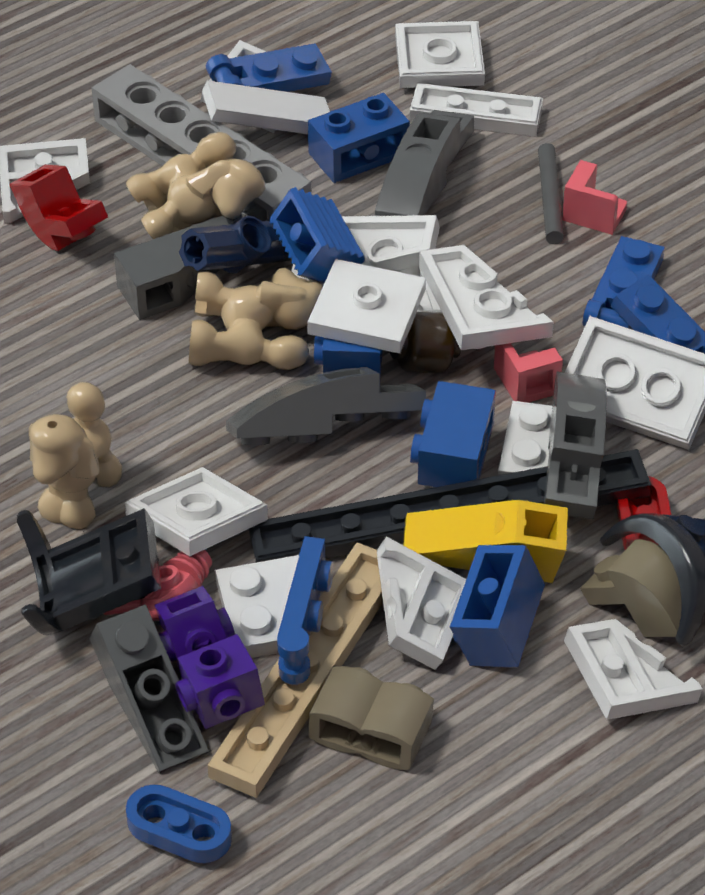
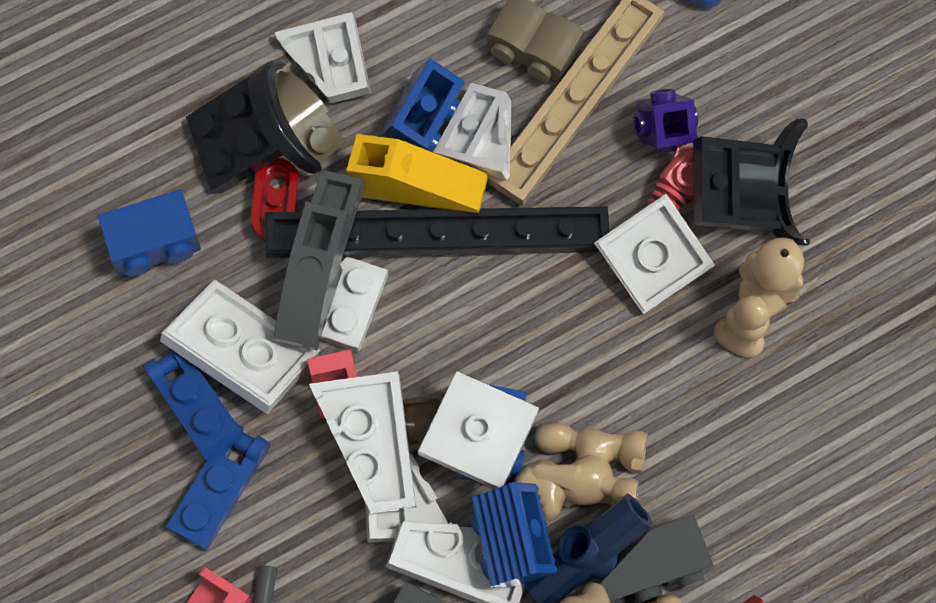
camera: 175 degrees left, 25 degrees up
(146, 687) = (702, 78): dark grey slope -> none
(219, 682) = (651, 60): dark purple brick -> none
(256, 601) = (605, 169): white wing -> none
(303, 610) = (578, 112): blue plate -> none
(307, 406) = (532, 353): dark grey slope -> none
(454, 435) = (419, 297): blue brick -> none

